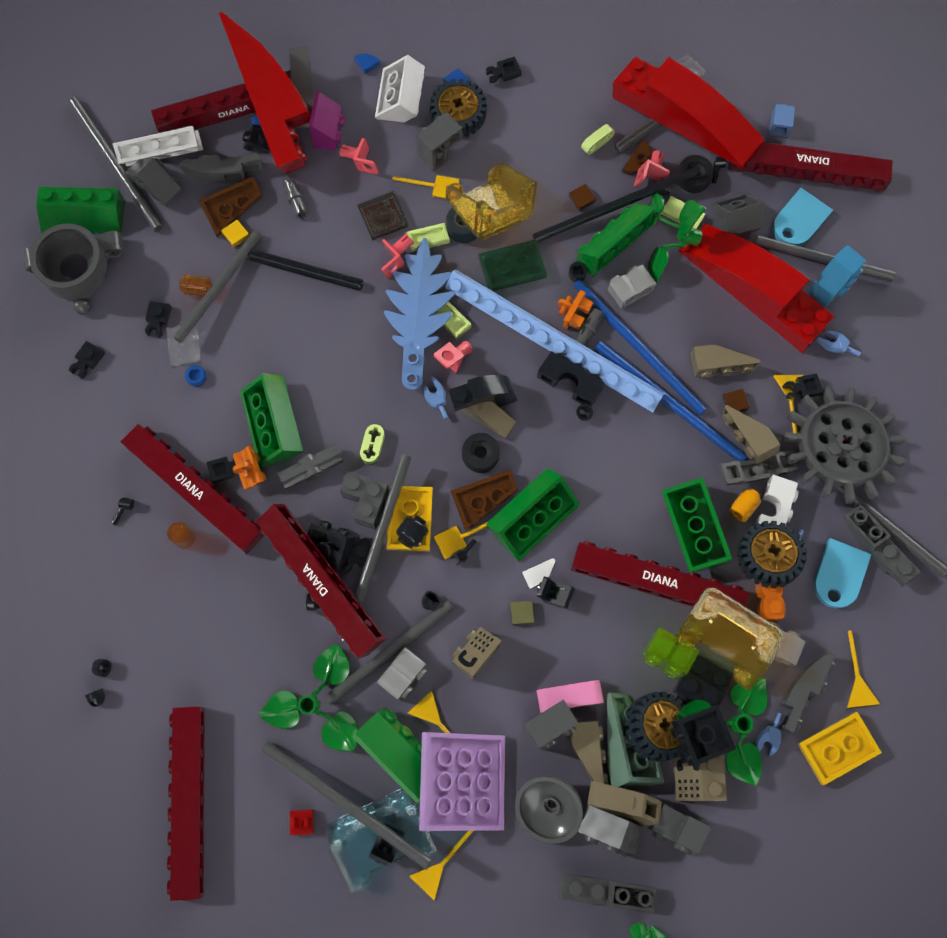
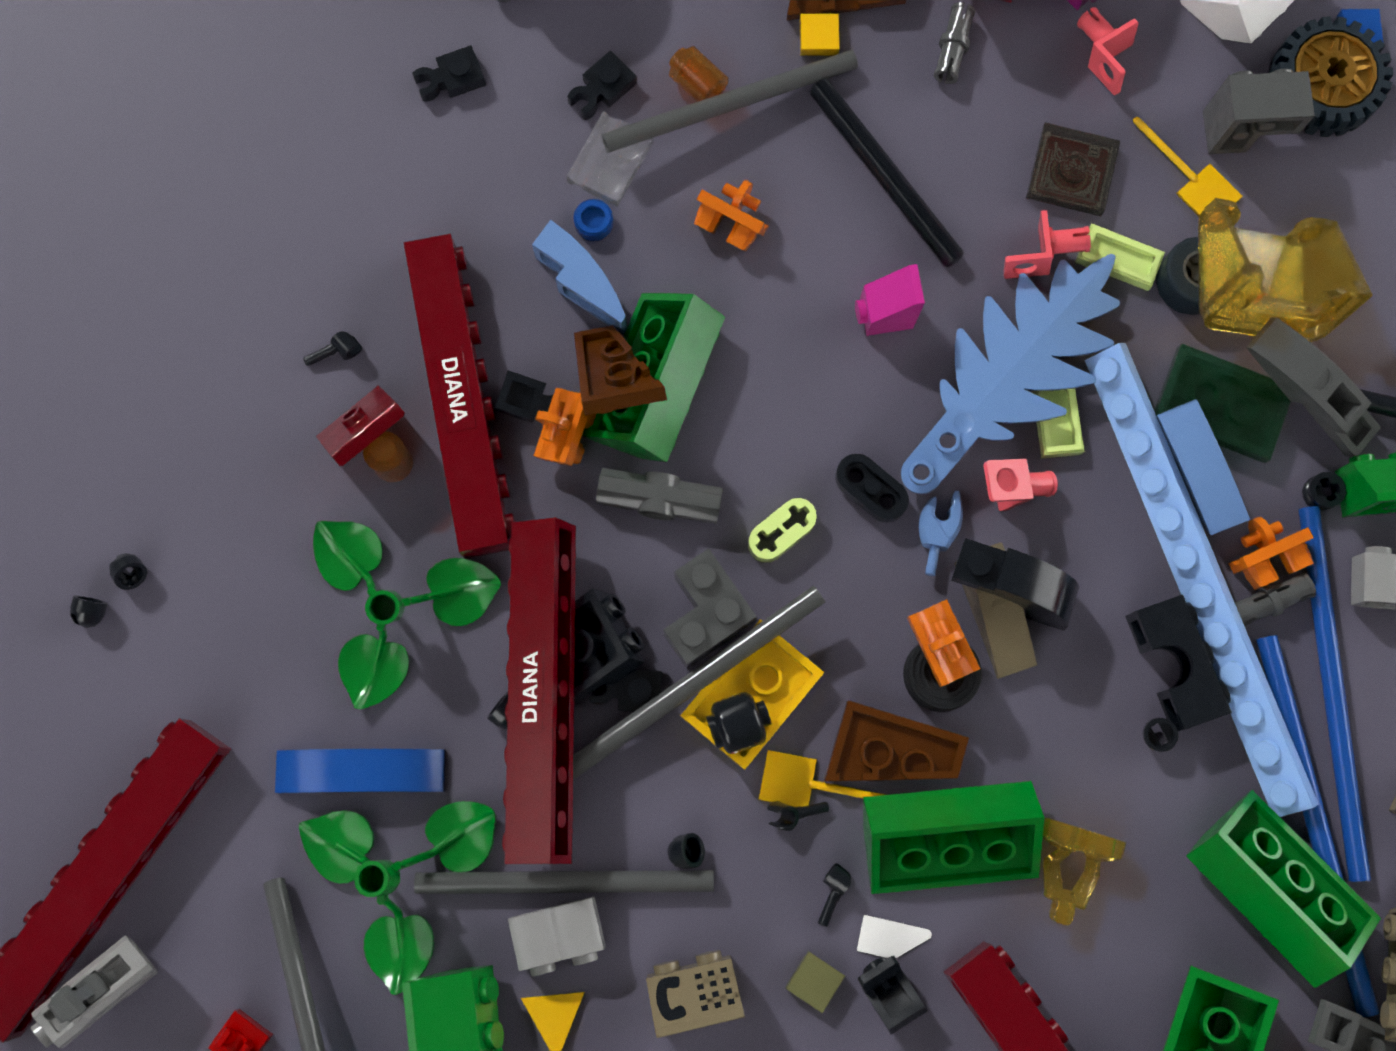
camera: 35 degrees right, 5 degrees up
(159, 530) = (360, 425): none -> dark red plate
(208, 402) = (579, 275): none -> medium blue slope
(222, 847) = (92, 993): none -> light grey piece
(239, 627) = (370, 665): none -> green plant
(252, 430) = (611, 373): none -> reddish brown wing
(263, 332) = (713, 209): none -> orange hips
(267, 672) = (360, 770): none -> blue slope
(348, 320) = (891, 302): none -> dark pink slope
(396, 399) = (874, 485): none -> black plate
(470, 437) = (943, 643): none -> orange hips
(501, 565) = (840, 881): none -> black hand
(522, 296) = (1203, 467): none -> medium blue slope
(541, 231) = (1317, 383): none -> dark grey slope
(578, 480) = (1070, 840): none -> clear yellow piece
(675, 435) = (1285, 890): none -> green slope

